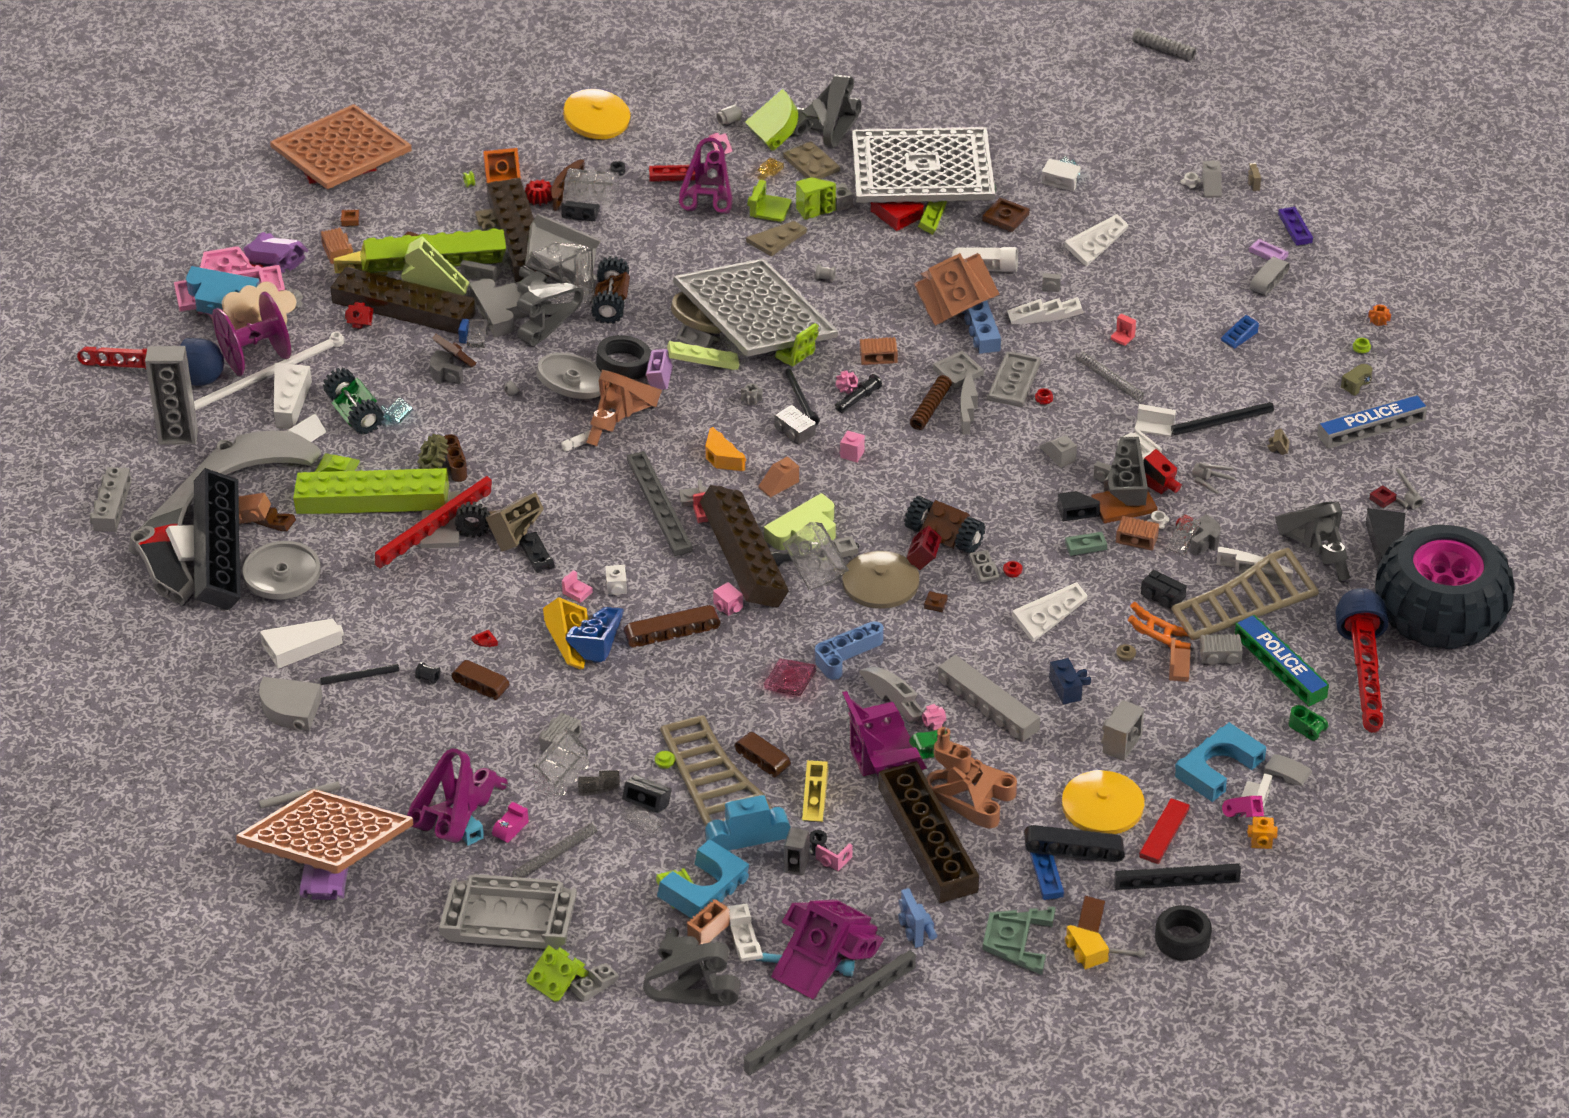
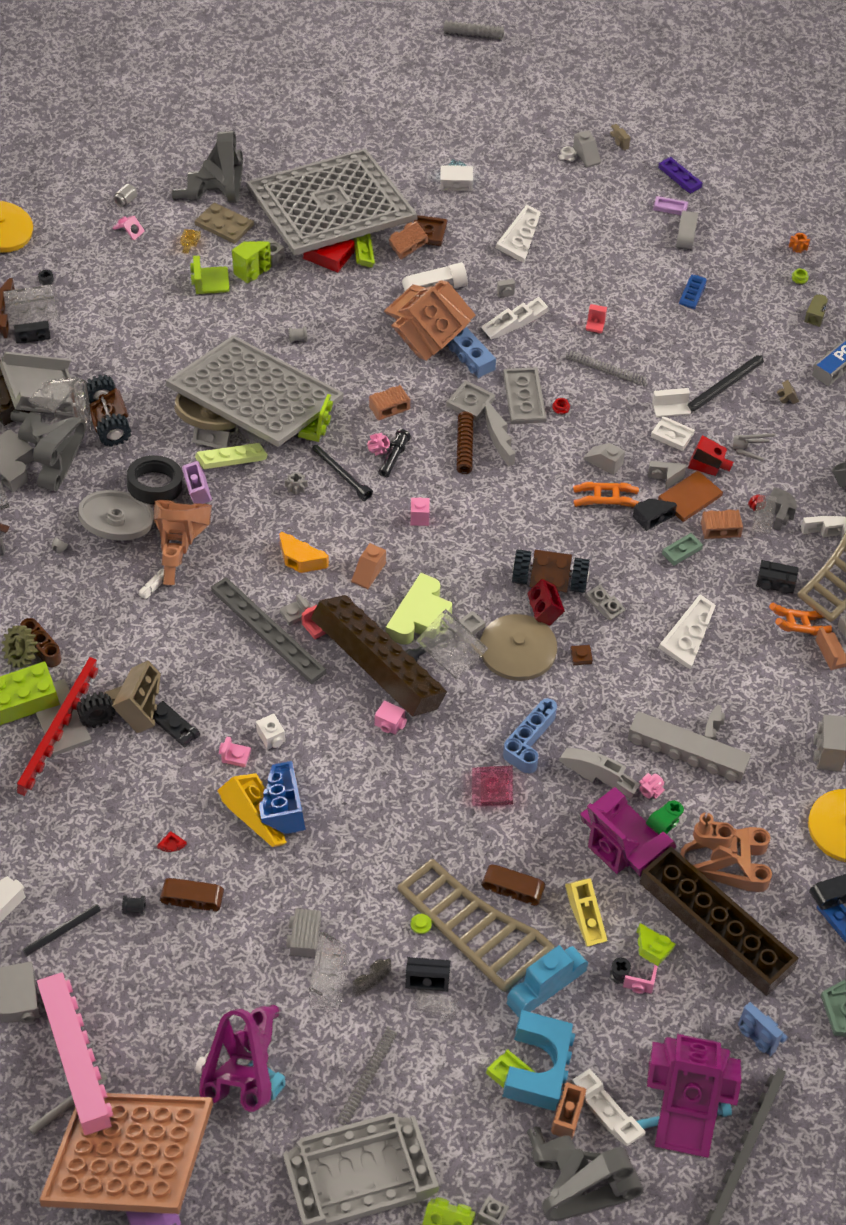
camera: 25 degrees left, 10 degrees up
(320, 755) = (74, 1053): none -> bright pink brick
(511, 822) = (307, 1058): dark pink leg -> none
(669, 173) = (103, 268): red plate -> none
(671, 625) = (350, 765): reddish brown beam -> none
(714, 161) = (140, 248): magenta connector -> none
(774, 120) = (173, 191): lime brick -> none
(777, 238) = (232, 310): dark tan wing -> none
(795, 424) = (353, 504): brick -> none
(796, 851) = (610, 991): flat silver brick -> none
(859, 833) = (653, 945): none -> lime wing
(978, 216) = (408, 239): none -> nougat brick
(1012, 569) = (629, 600): red plate -> none
(1024, 685) = (714, 721): none -> light grey slope
(1033, 472) = (597, 499): none -> orange piece
(1066, 680) = (749, 704): dark blue brick -> none
(1126, 652) = (780, 658): dark tan plate -> none
(1127, 473) = (689, 466): dark grey wedge -> none
(1160, 518) = (729, 499): white plate -> none

